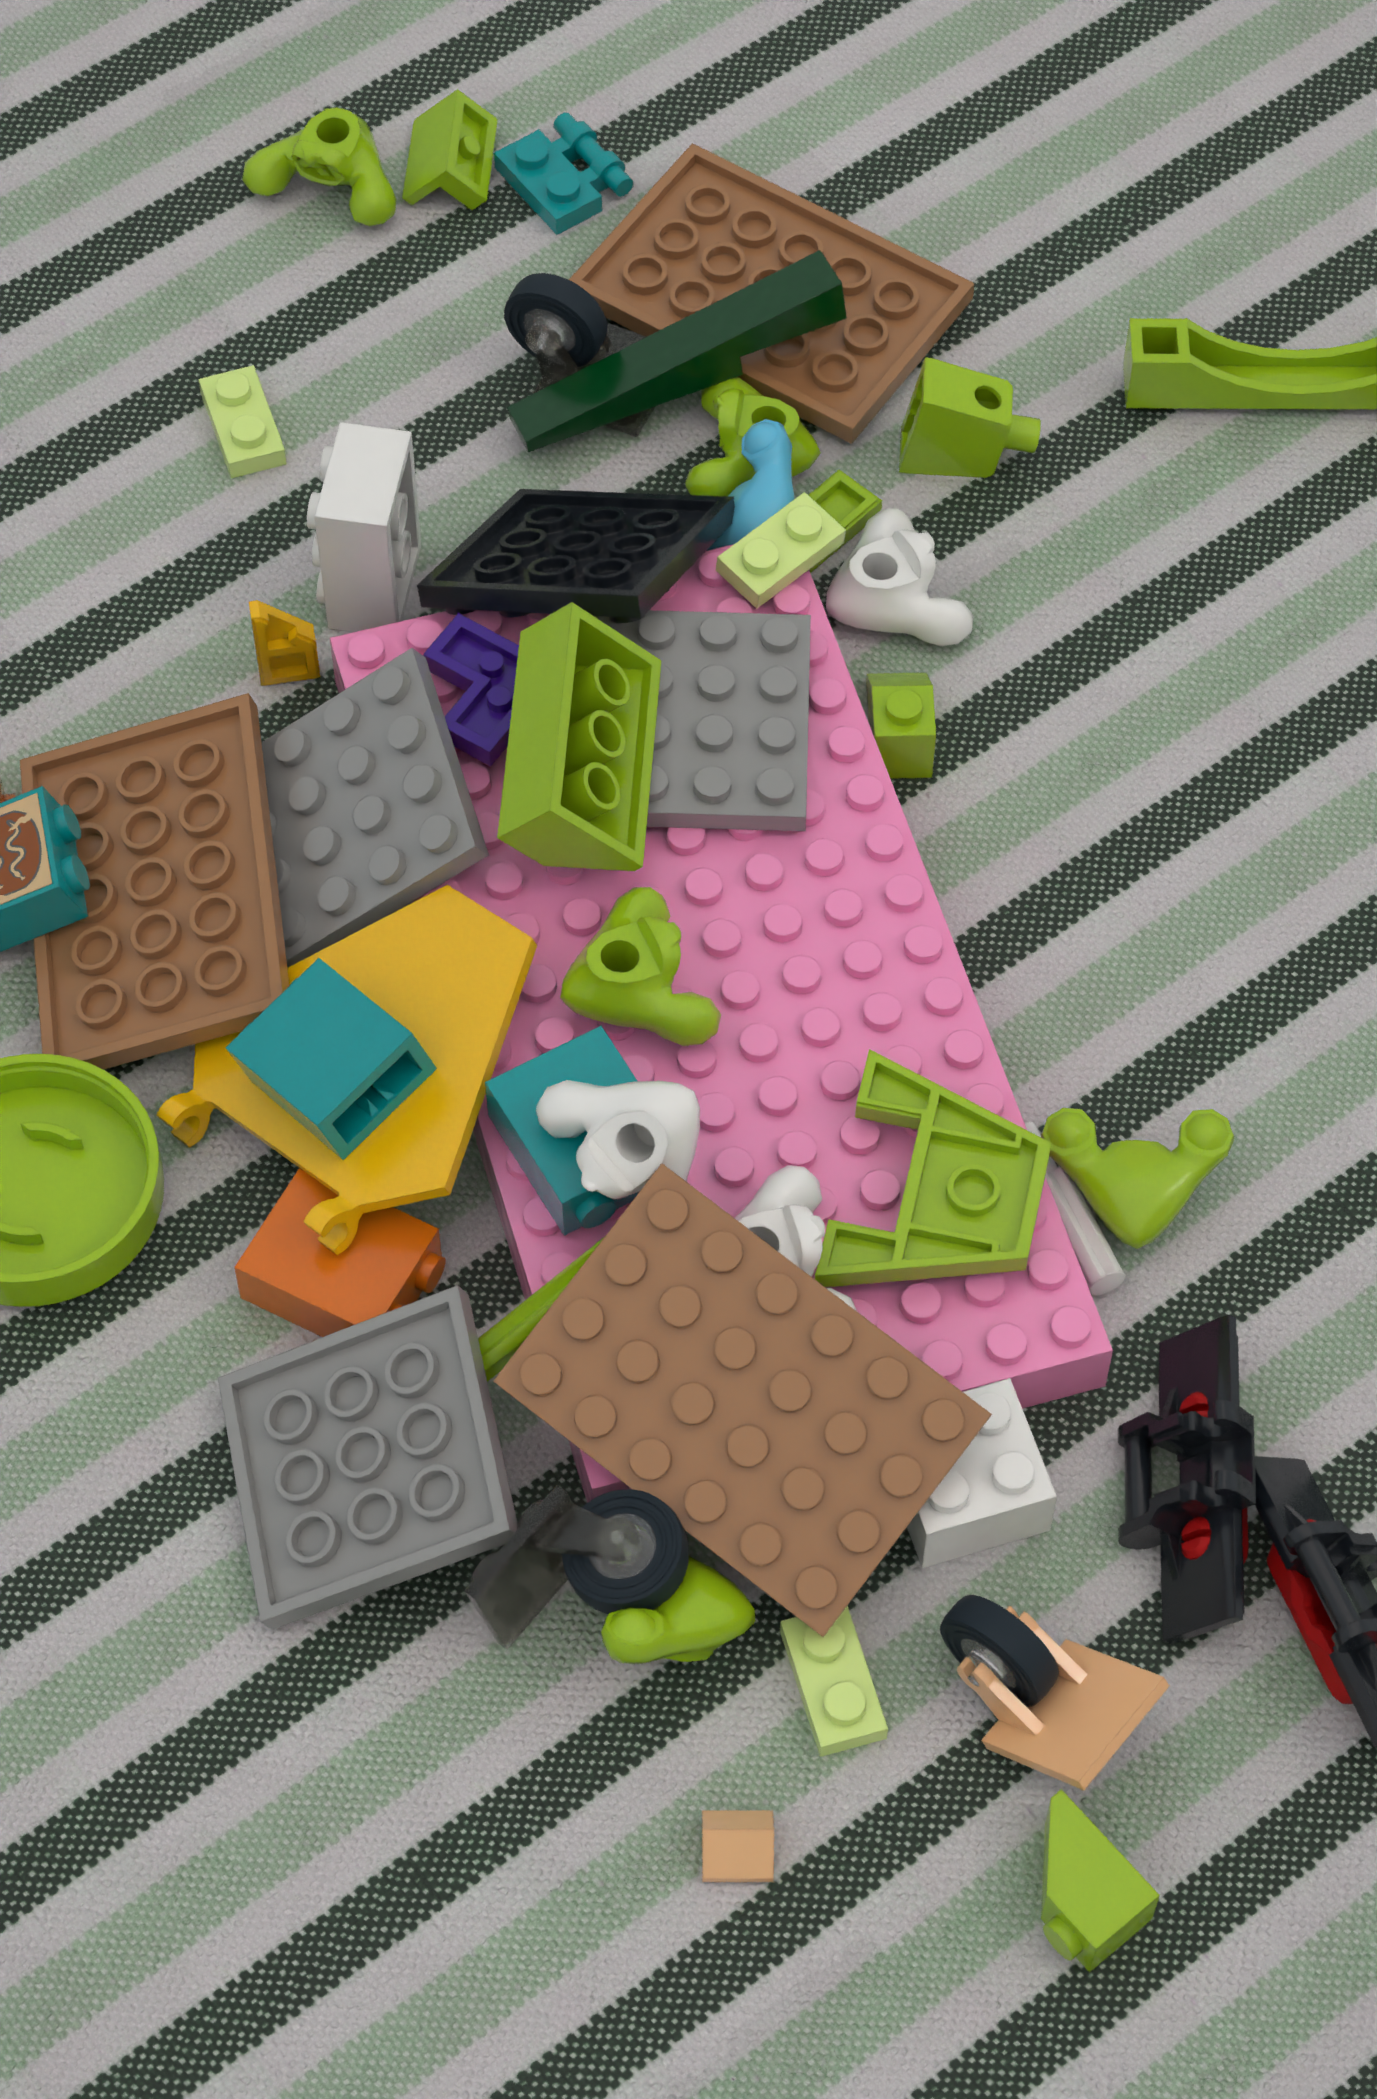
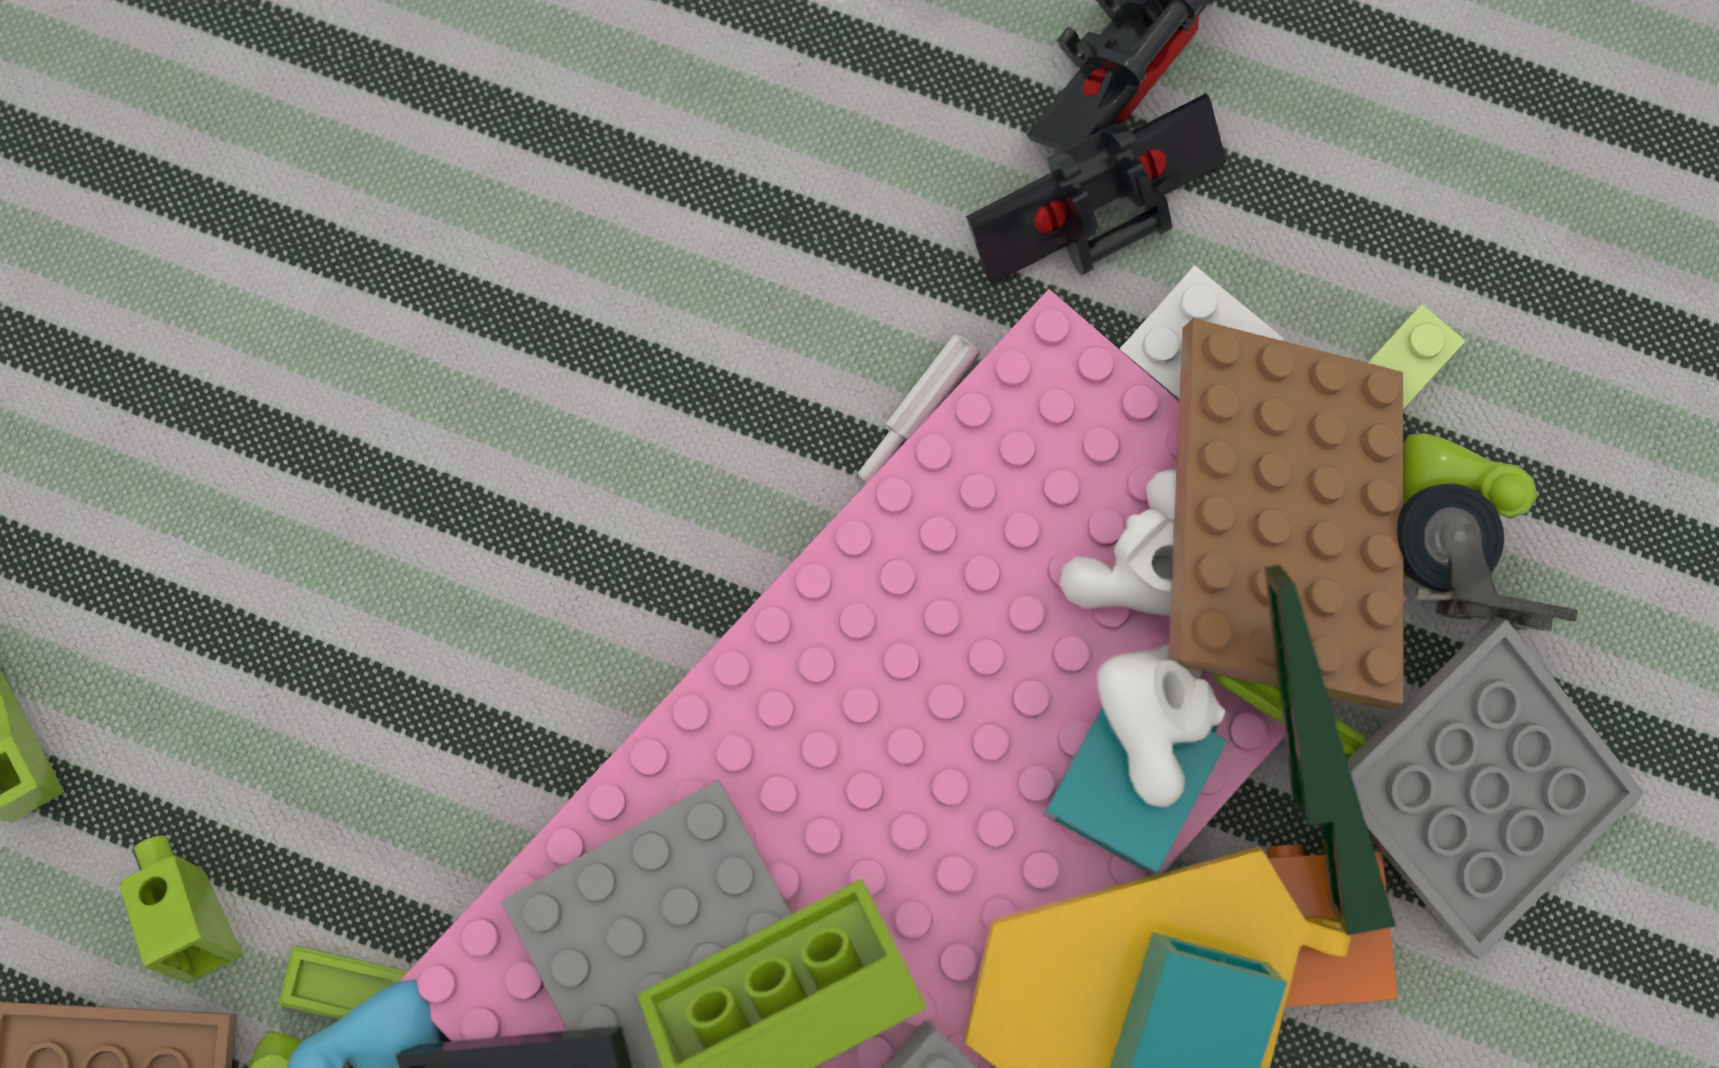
camera: 115 degrees left, 20 degrees up
(487, 1253) = (1320, 769): none -> dark green slope
(629, 974) = (964, 827): lime head -> none
(737, 1846) = (1565, 360): light nougat slope -> none
(780, 550) = (437, 973): yellowish green plate -> none
(887, 584) = (386, 883): white head -> none
(903, 722) = (523, 793): lime slope -> none
(966, 1191) = (999, 451): lime wing -> none
(1053, 1703) = (1335, 195): light nougat plate -> none
(1088, 1888) = (1452, 108): lime slope -> none
(1138, 1183) = (871, 363): lime head -> none

